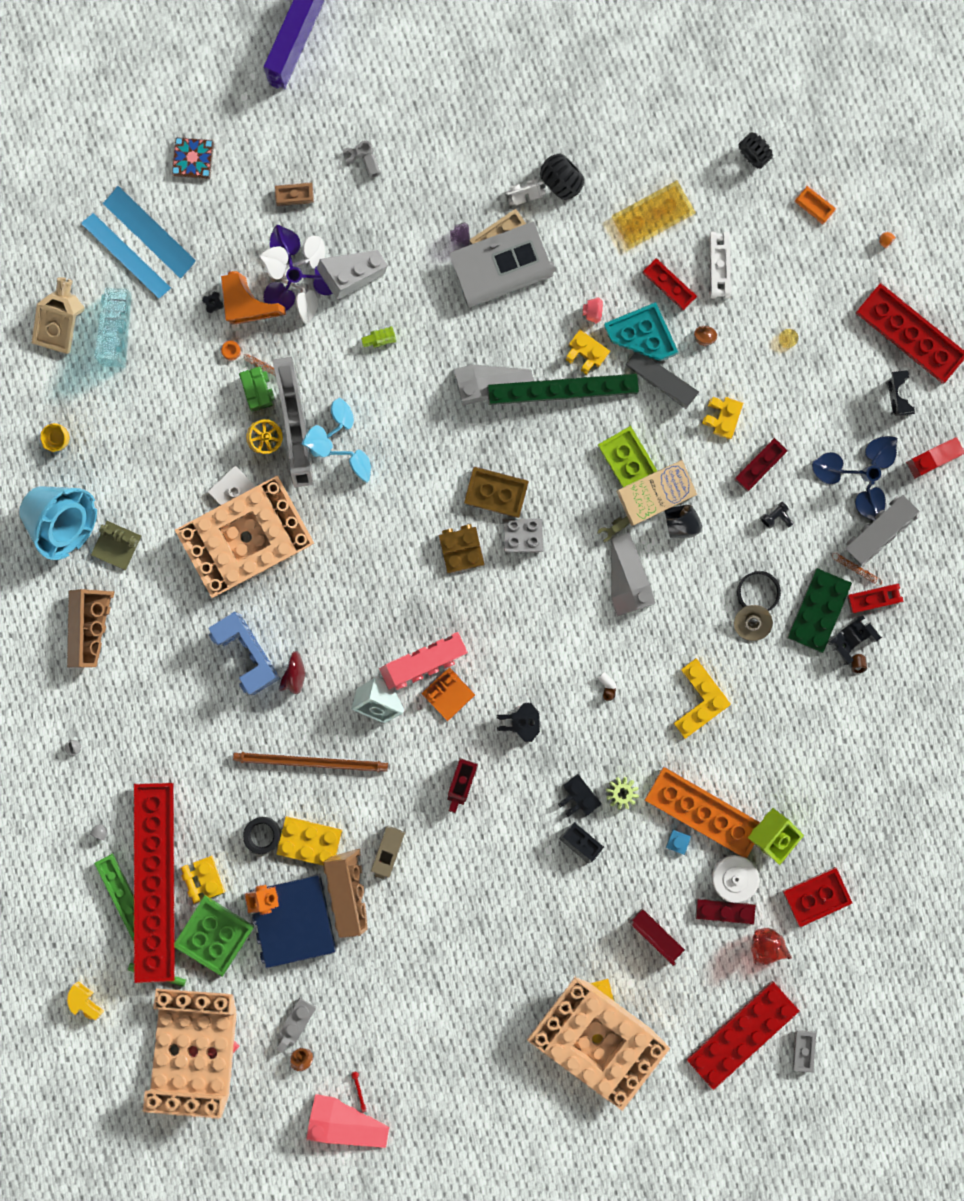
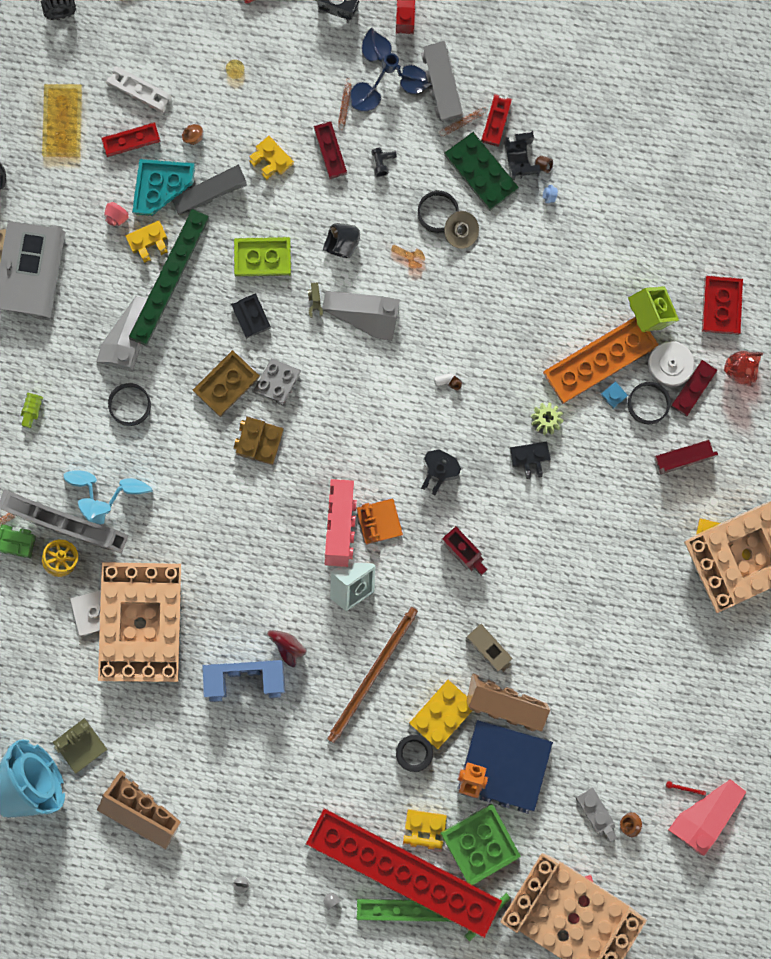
camera: 65 degrees left, 5 degrees down
(425, 401) = (117, 389): none -> black tyre
(569, 479) = (251, 316): none -> black plate
(581, 843) = (571, 476): black hinge -> none
(656, 492) = (304, 247): tan tile -> none
(703, 588) = (409, 255): none -> clear orange bar
(707, 881) = (662, 389): none -> black tyre
(713, 698) = (508, 299): yellow plate -> none
(811, 456) = (341, 110): none -> piece
(832, 684) = (550, 194): none -> light blue plate

